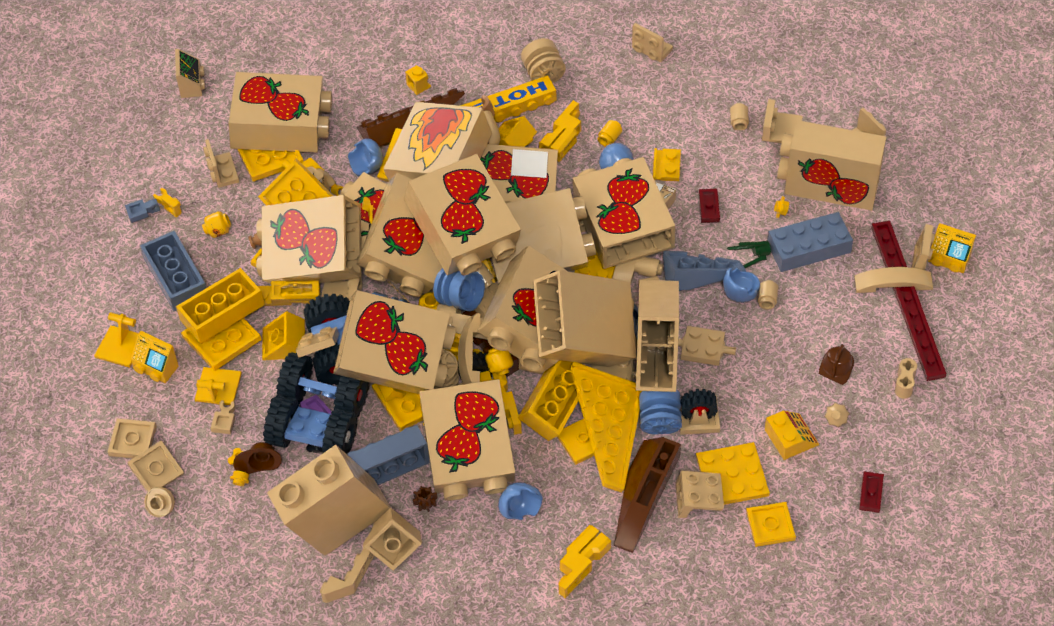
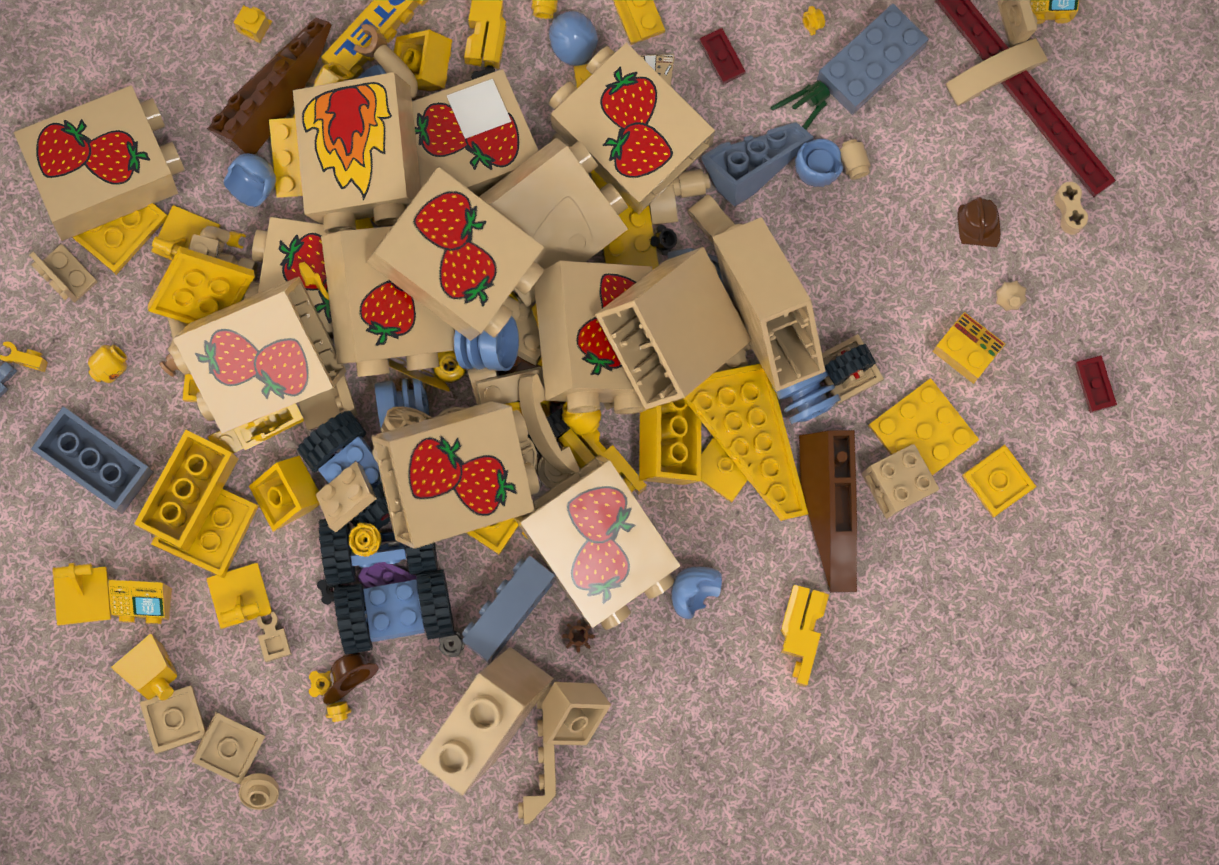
camera: 30 degrees left, 25 degrees up
(133, 399) = (148, 669): none -> yellow torso
(314, 370) = (357, 537): none -> yellow plate
(704, 346) = (815, 264): tan plate -> none

